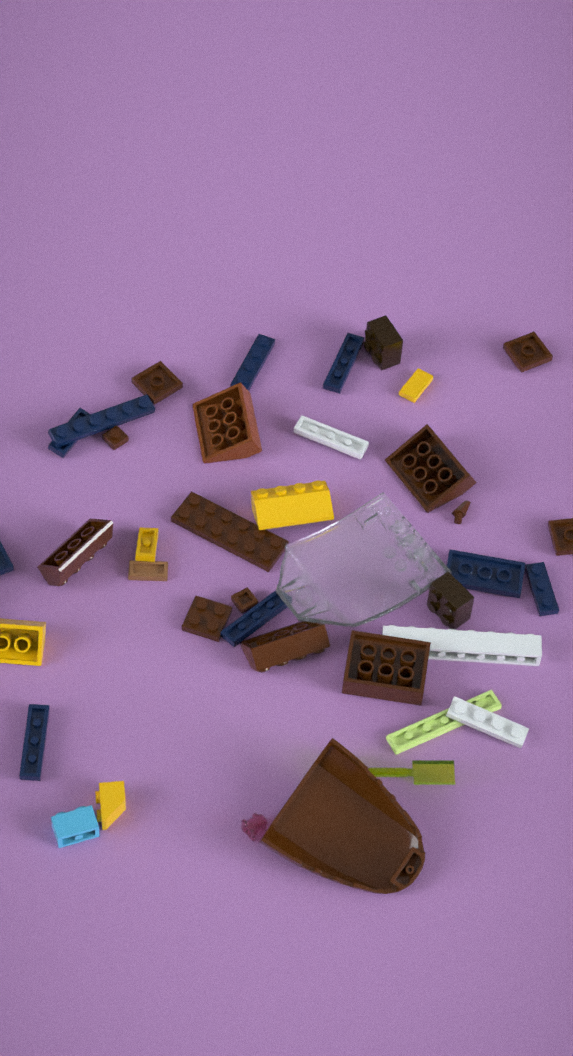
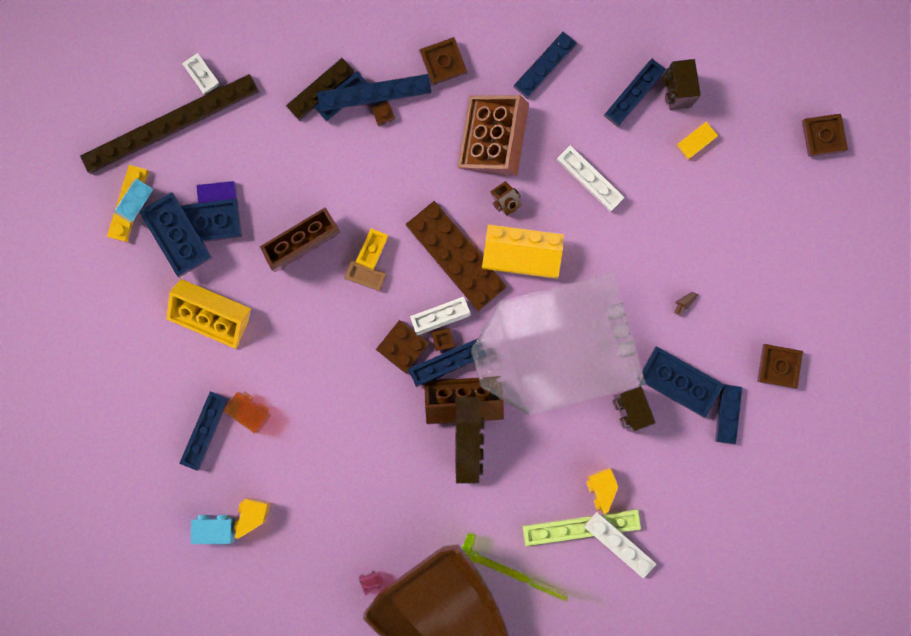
camera: 20 degrees right, 30 degrees up
(40, 441) = (329, 80): none -> dark brown plate
(74, 712) = (248, 412): none -> clear orange brick
(234, 581) = (440, 316): none -> white plate
(259, 469) = (506, 198): none -> reddish brown brick
(304, 667) = (468, 440): none -> dark brown wedge
(386, 667) = (547, 460): reddish brown slope -> none
(430, 470) = (672, 247): reddish brown slope -> none
(448, 677) = (604, 488): none -> yellow slope
(474, 645) = (627, 455): white brick -> none

